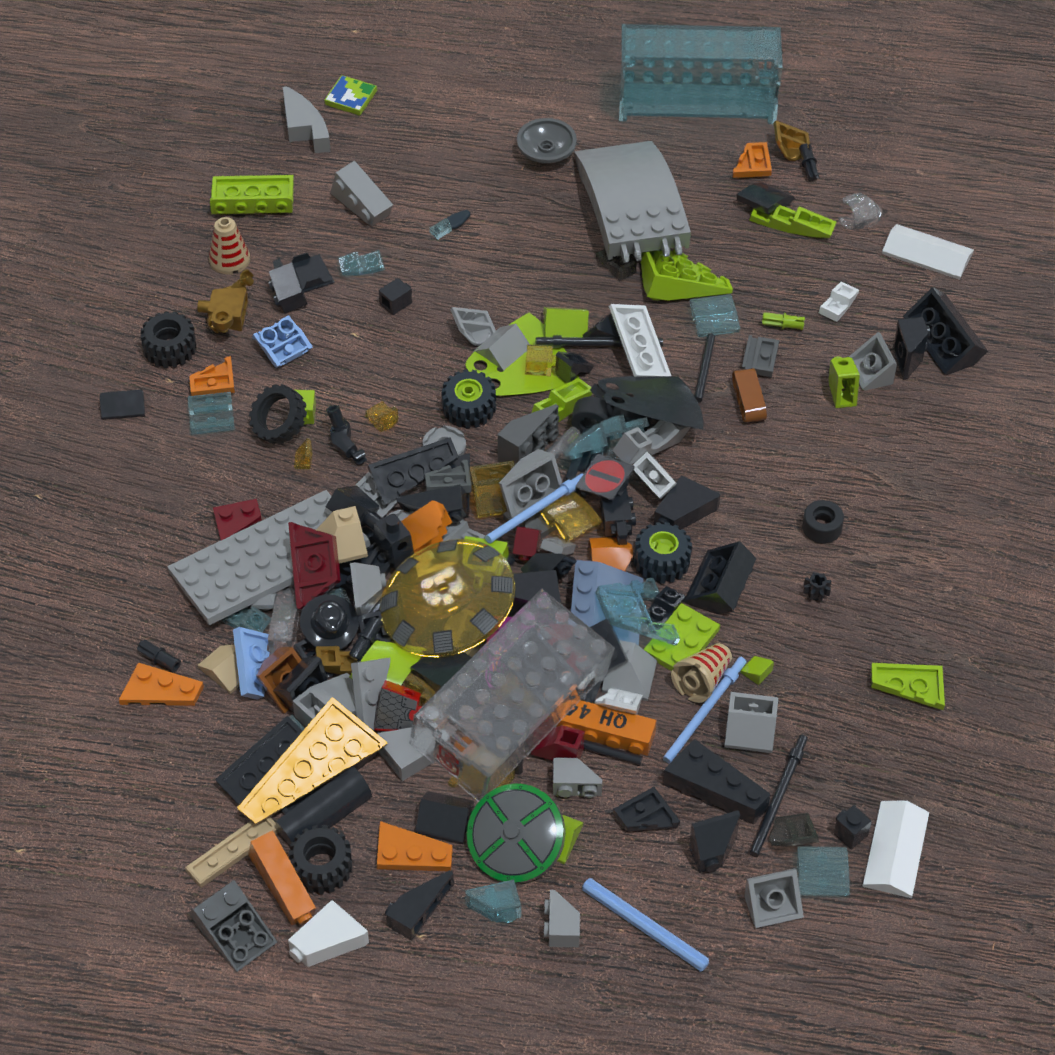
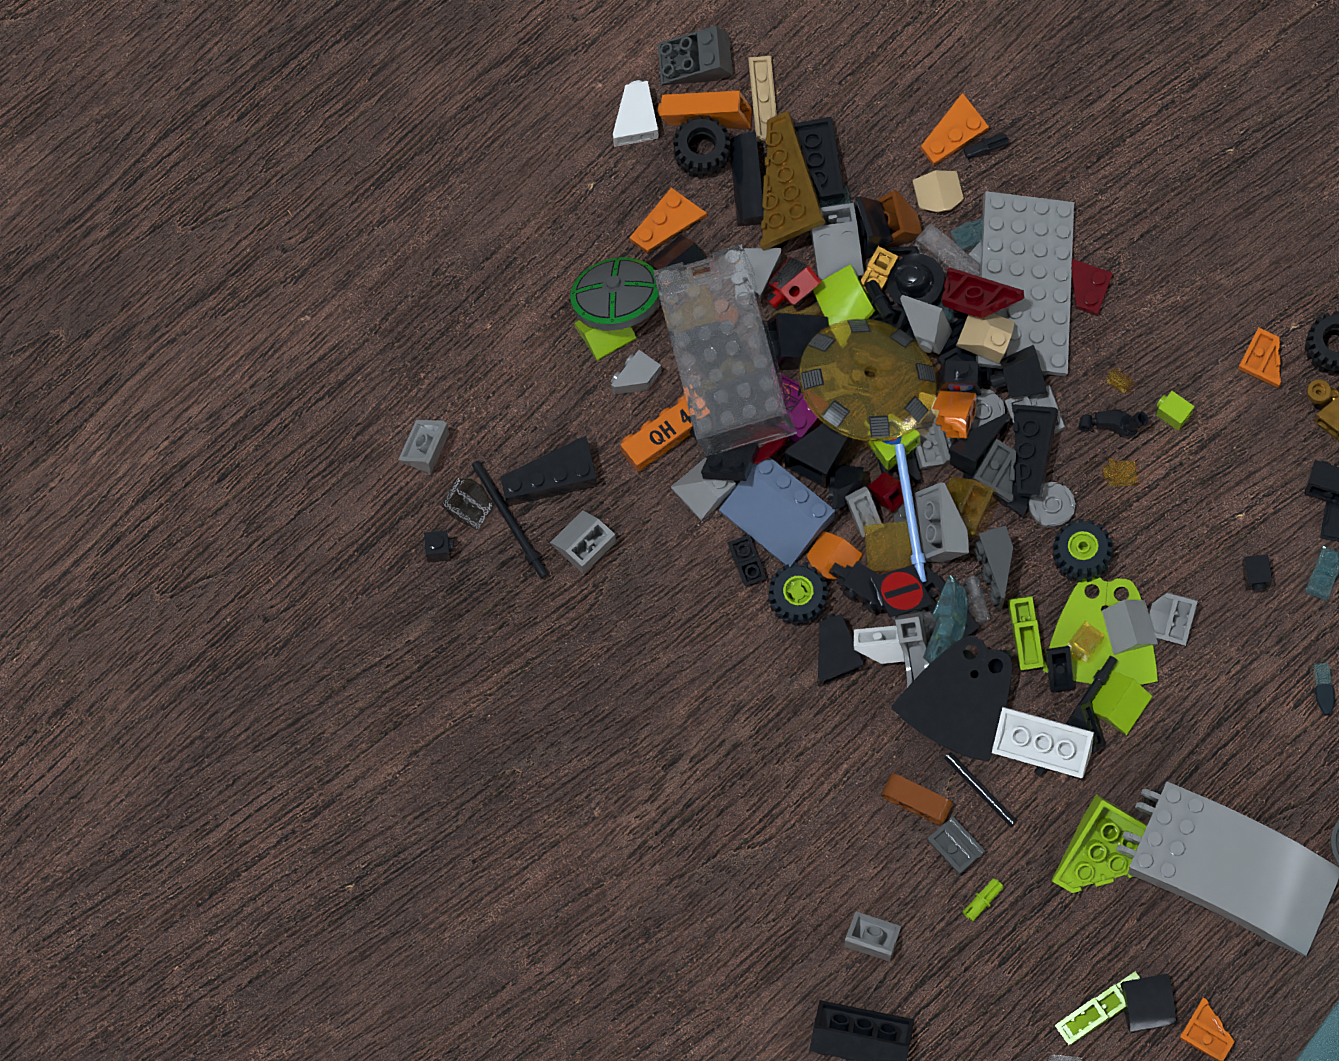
camera: 130 degrees right, 20 degrees up
(122, 404) = (1285, 267): black slope -> none
(211, 413) = (1226, 335): clear light blue slope -> none
(250, 654) = (928, 204): light blue wing -> none
(283, 342) = (1268, 438): light blue slope -> none
(292, 423) = (1173, 362): black tyre -> none
(367, 684) = (828, 266): light grey wing -> none
(417, 905) = (611, 183): black slope -> none
(495, 901) = (573, 248): clear light blue slope -> none
(561, 743) = (666, 385): dark red slope -> none
(563, 922) = (522, 283): light grey slope -> none
(589, 412) = (988, 631): black tyre -> none
(612, 752) = (652, 416): black bar -> none
(620, 700) = (677, 454): white slope -> none
(627, 610) = (754, 512): clear light blue wing -> none
(646, 812) = (568, 409): black wing -> none
(646, 924) = (478, 342): light blue axle -> none
(694, 633) = (706, 553): lime plate -> none
(701, 672) = (658, 541): tan cone -> none
(713, 840) = (500, 430): black slope -> none
(715, 315) = (1034, 843): clear light blue slope -> none
(721, 578) = (738, 624): black slope -> none
(728, 678) = (641, 562): light blue bar -> none
(757, 669) = (633, 590): lime slope -> none
(817, 586) = (675, 703): black gear -> none
(823, 871) = (419, 500): clear light blue slope -> none
(826, 511) = (739, 739): black tyre -> none
(839, 301) = (972, 972): white slope -> none
(844, 372) = (862, 887): lime torso -> none
(896, 848) = (399, 571): white slope -> none
(910, 344) = (862, 979): black slope -> none
(910, 681) = (527, 701): lime wing -> none

